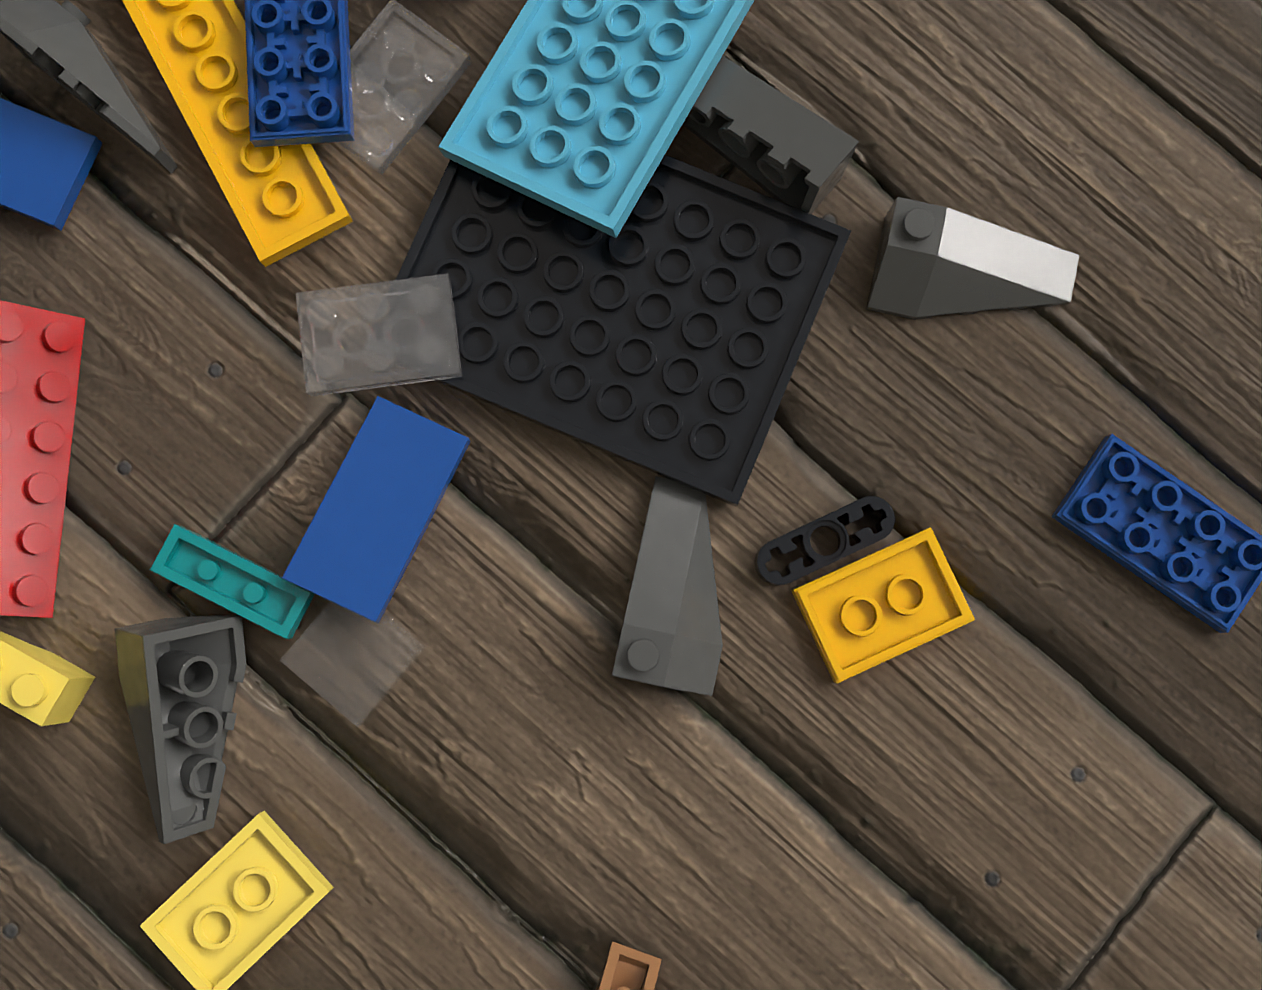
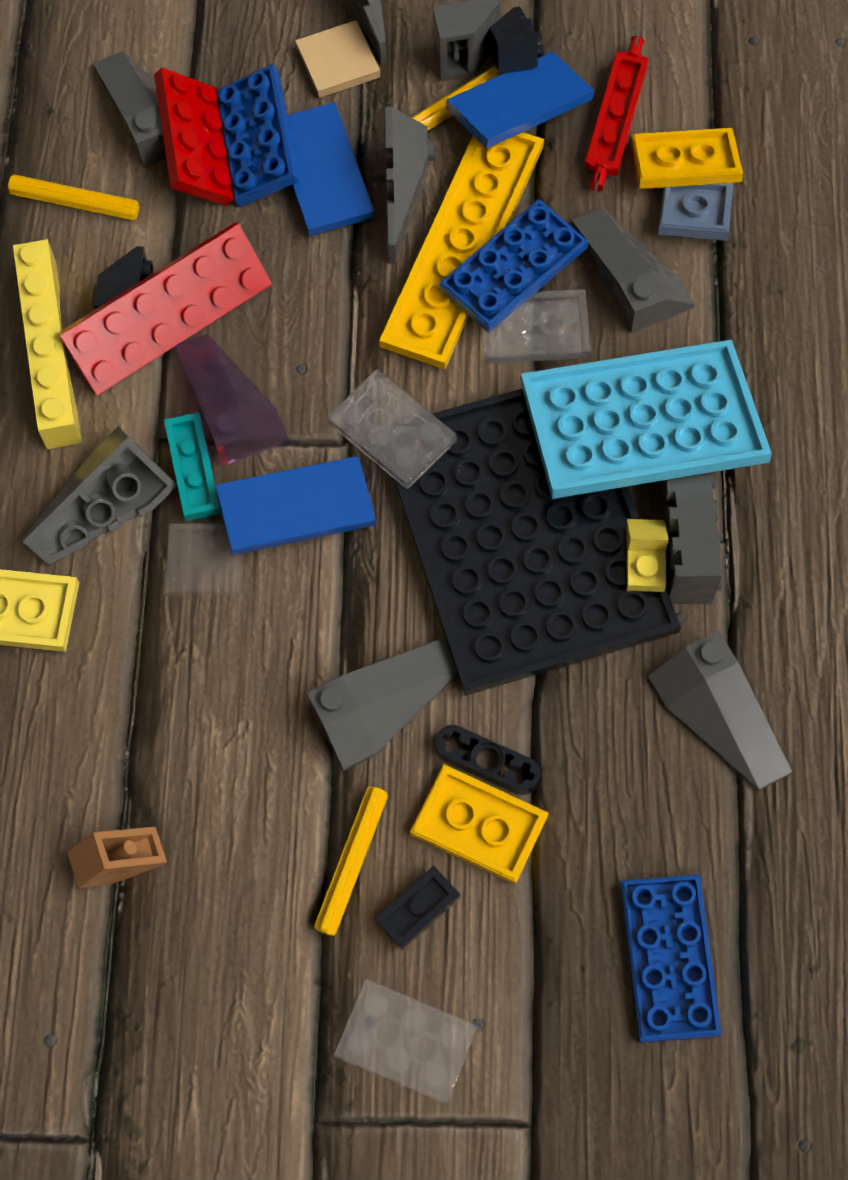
camera: 55 degrees right, 15 degrees down
(196, 480) = (232, 407): none -> clear purple wedge
(745, 194) = (646, 555): none -> light yellow slope
(817, 767) = (351, 861): none -> yellow axle
(923, 741) = (417, 908): none -> black plate
(1045, 862) = (406, 1041): none -> clear plate

